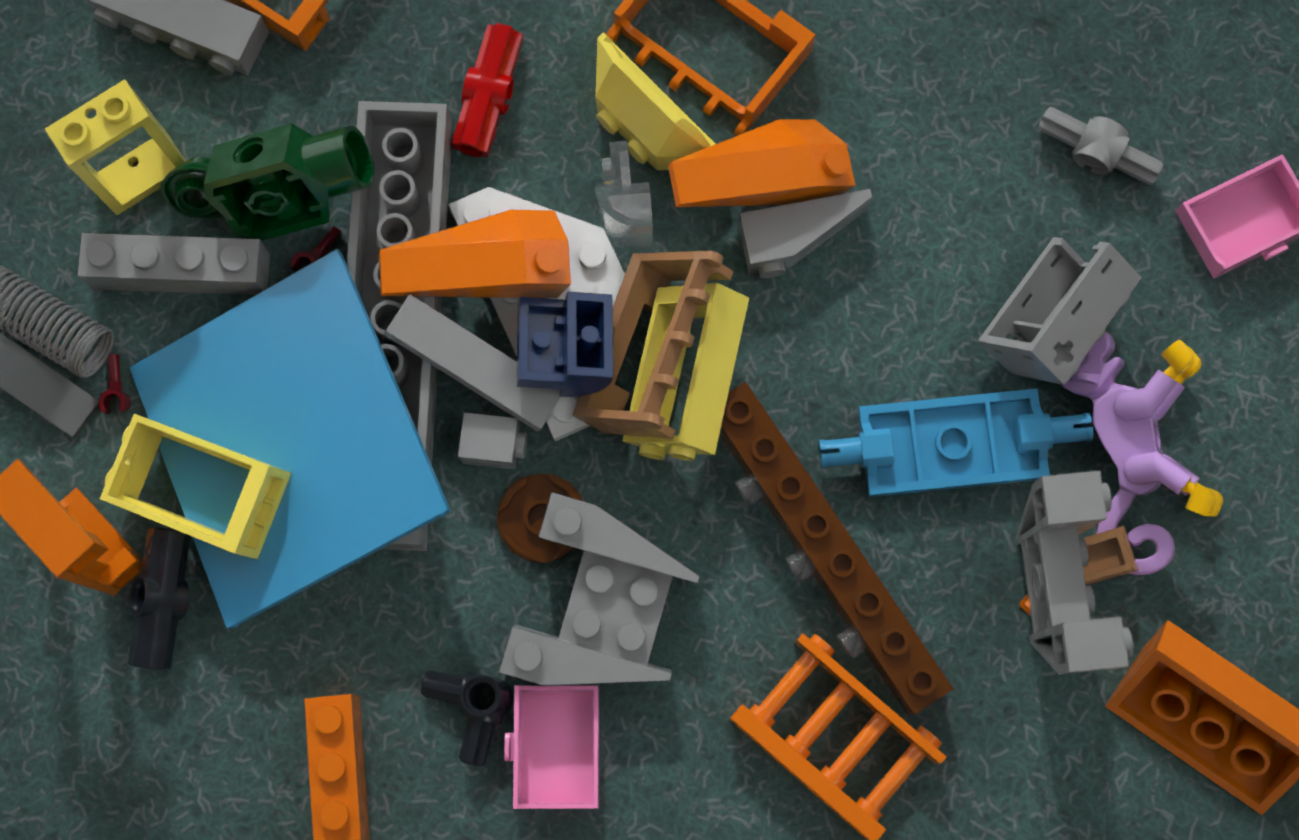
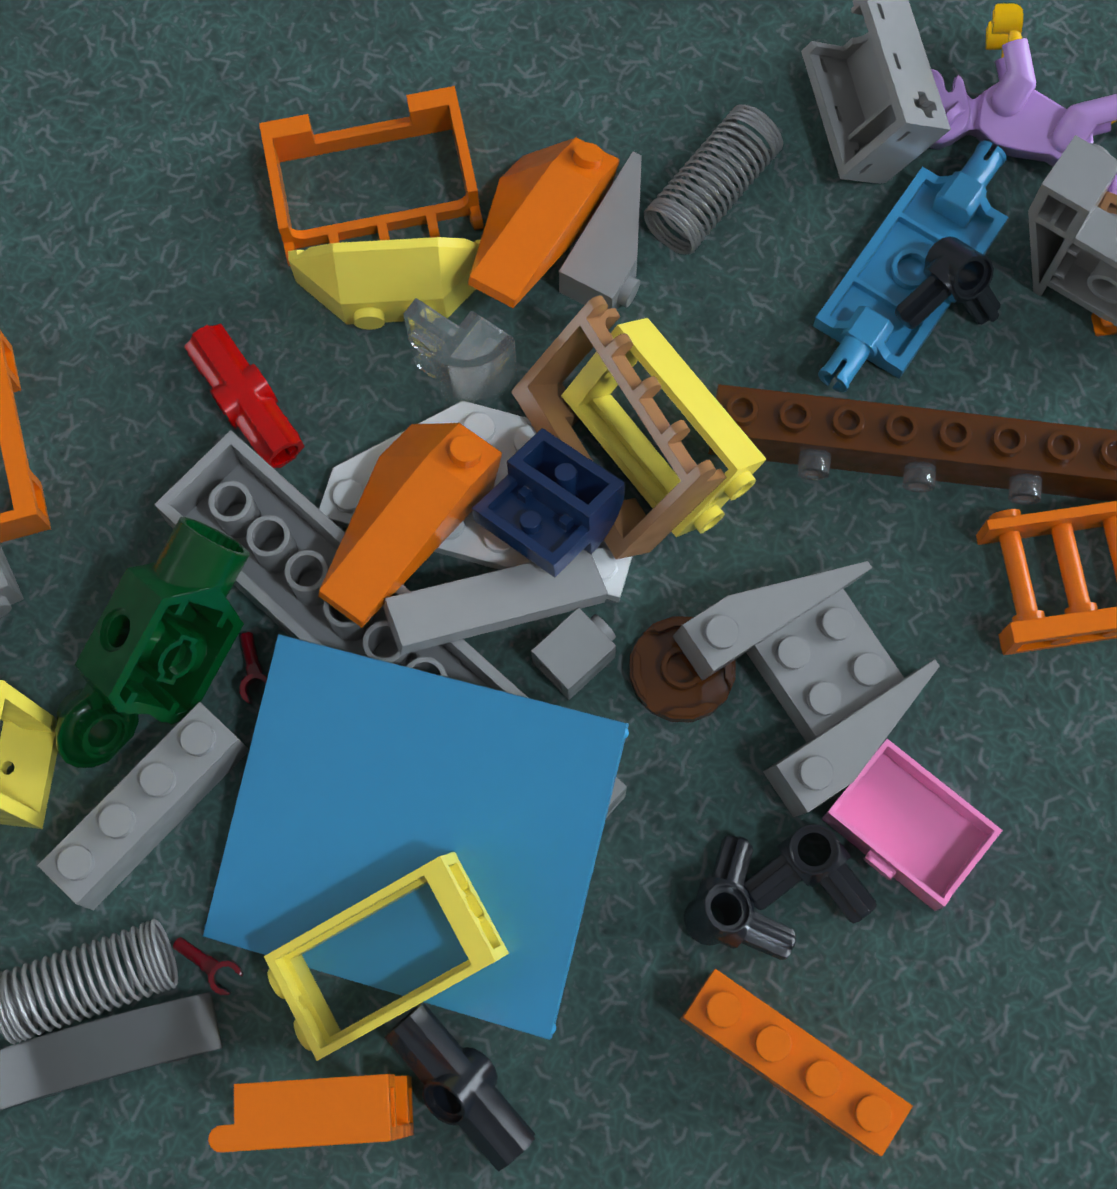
camera: 50 degrees left, 5 degrees down
(402, 690) = (740, 921): none -> black axle
(924, 262) = (681, 215): none -> light grey piece
(963, 474) = (954, 274): none -> black axle

